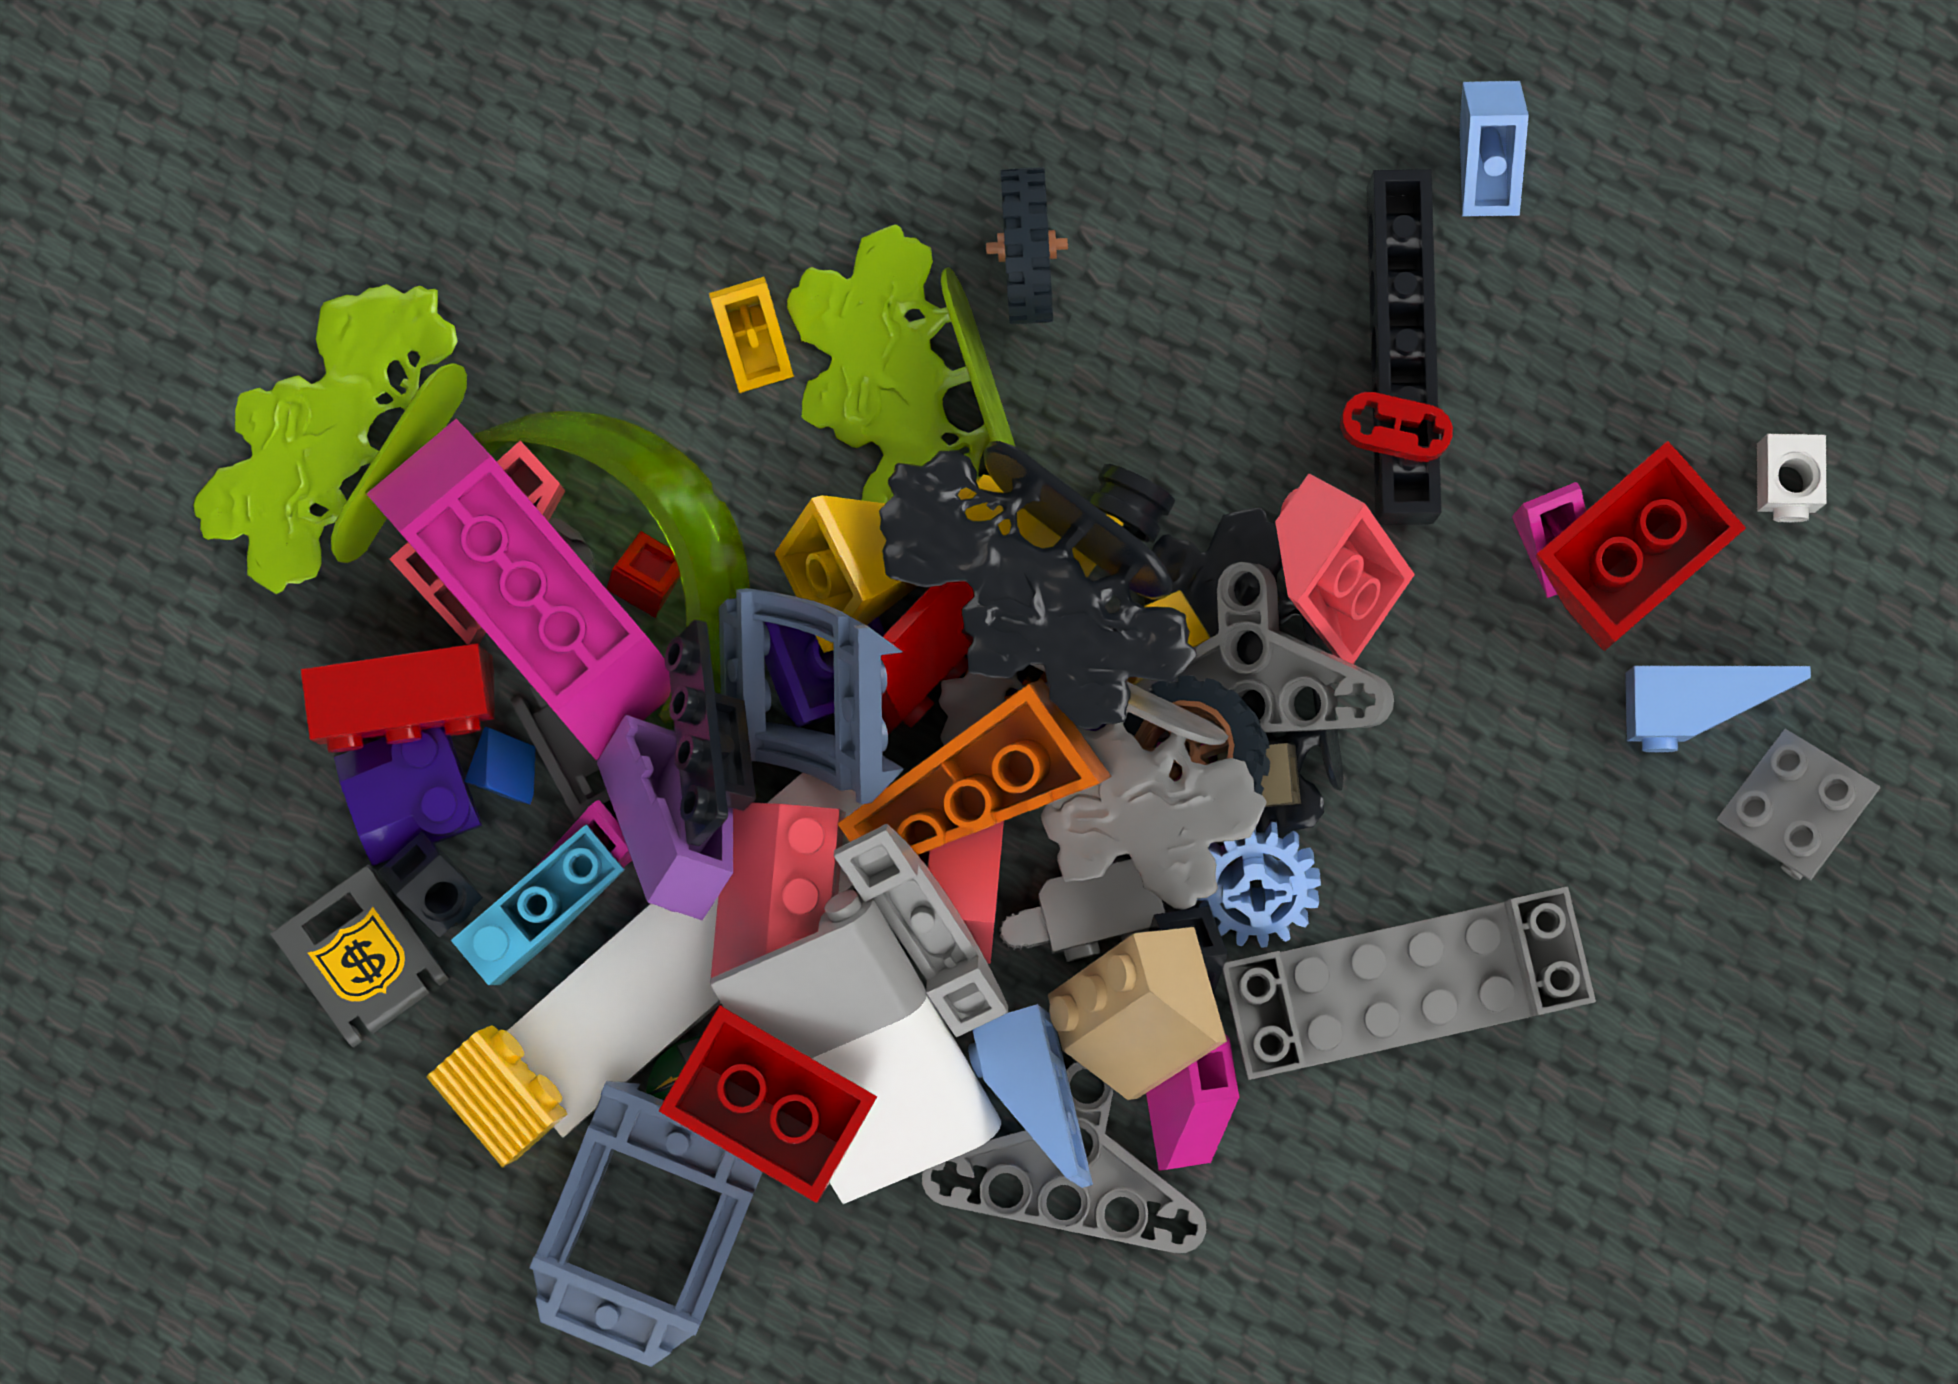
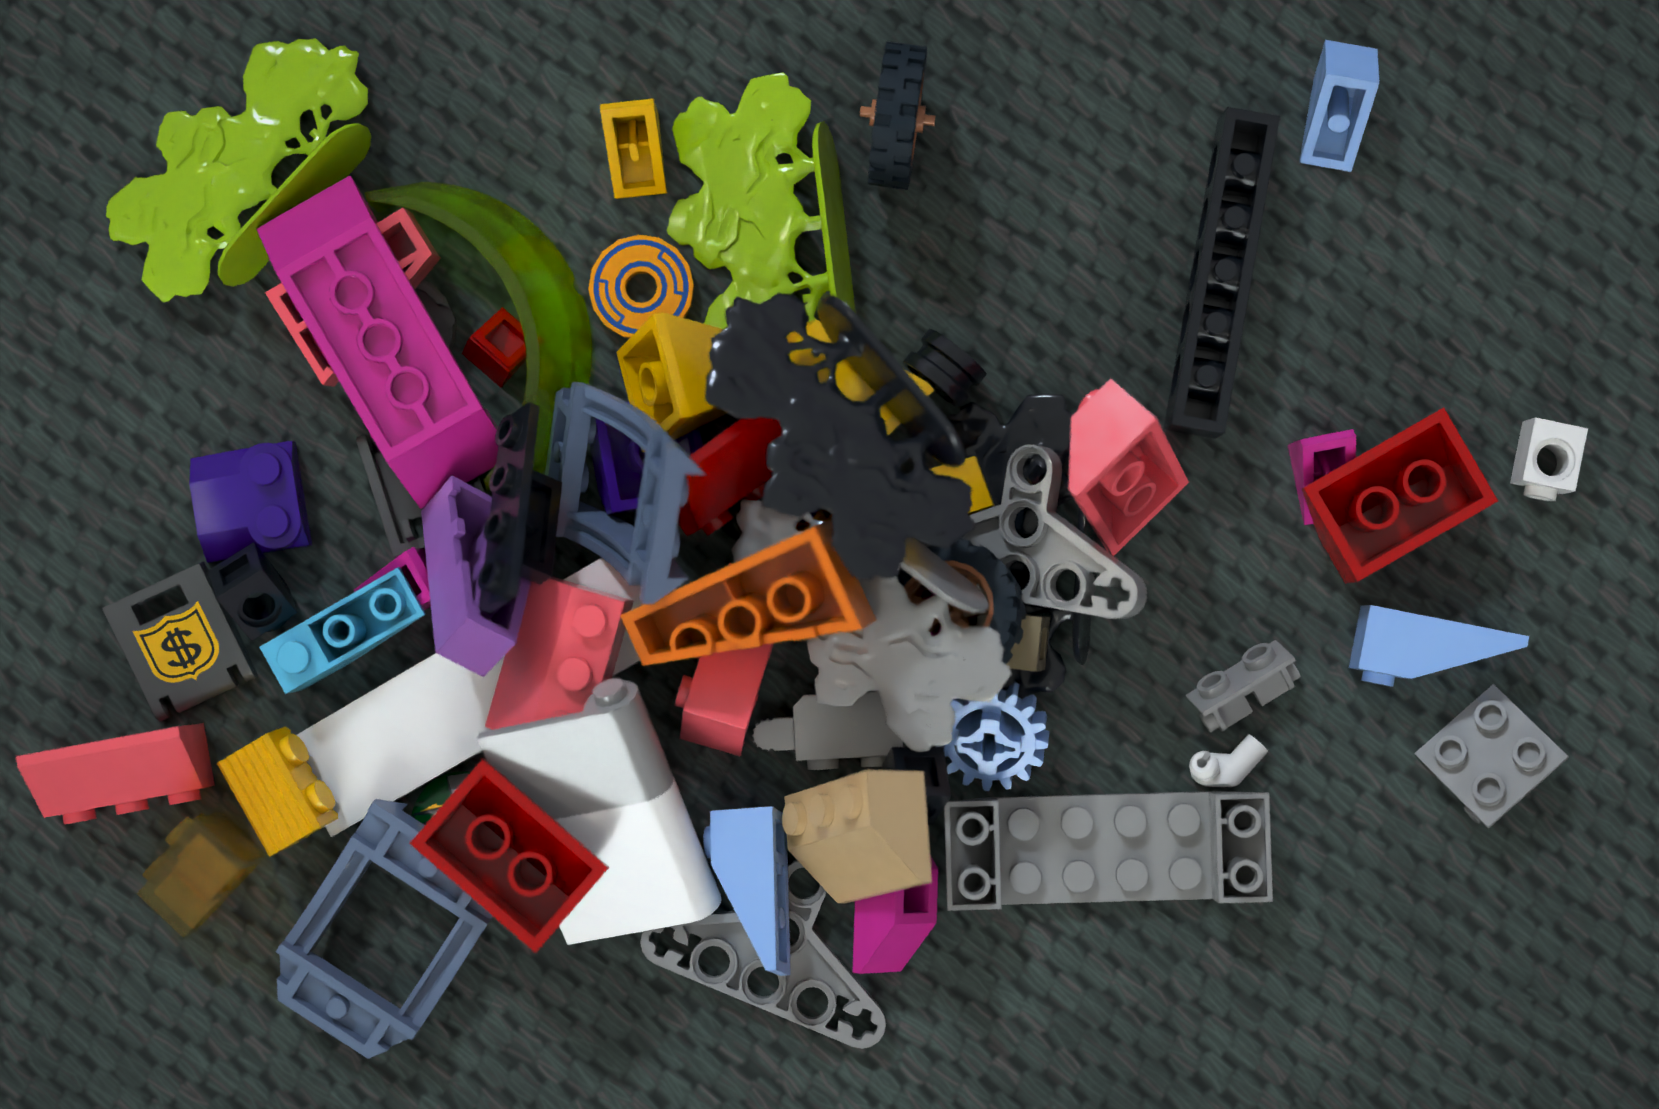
camera: 15 degrees right, 5 degrees up
(322, 1107) = (119, 773): none -> coral slope
(399, 696) = (252, 419): red slope -> none
(431, 1199) = (199, 870): none -> clear yellow brick
(503, 766) = (338, 497): blue slope -> none
(766, 453) = (639, 256): none -> light orange tile
(927, 925) = (684, 721): light grey slope -> none
(1399, 412) = (1205, 336): red beam -> none
(1519, 874) = (1224, 768): none -> white arm
(1535, 761) = (1263, 670): none -> light grey hinge

